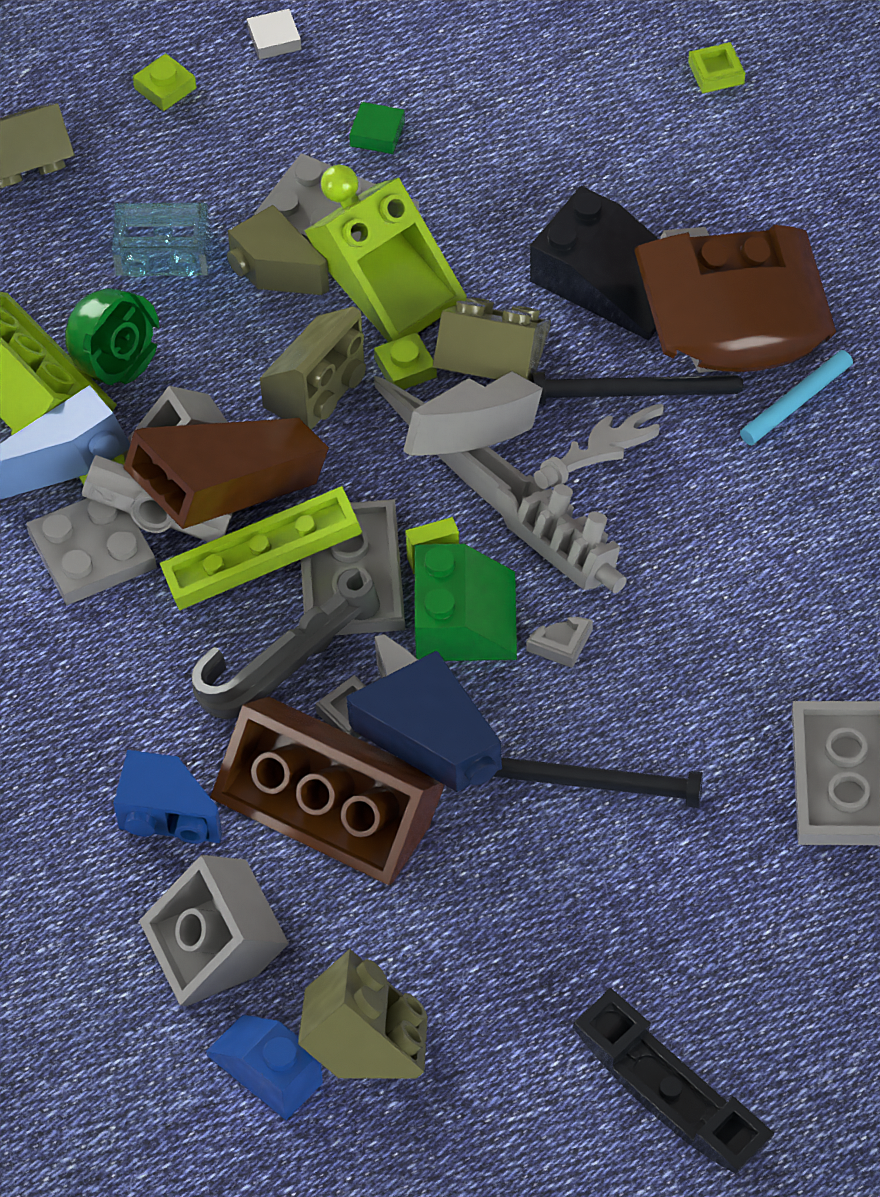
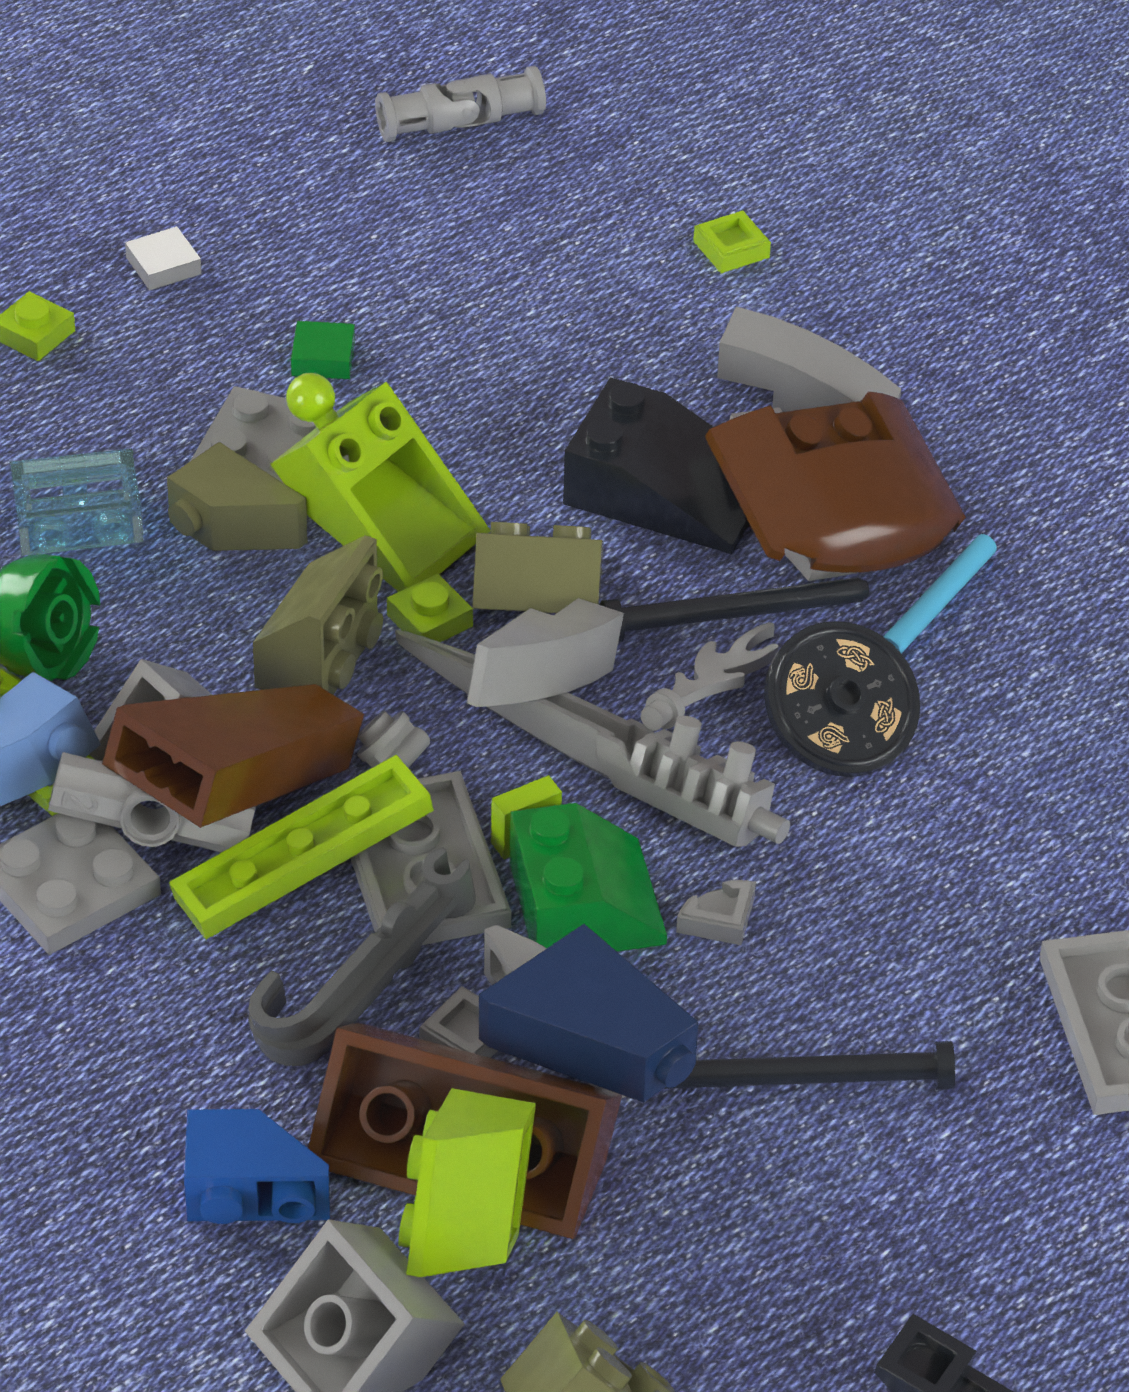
camera: 15 degrees left, 10 degrees down
(309, 839) = (468, 1183): none -> lime slope
(350, 470) = (391, 736): none -> light grey plate
(693, 479) = (842, 698): none -> black shield
(736, 189) = (794, 364): none -> light grey slope

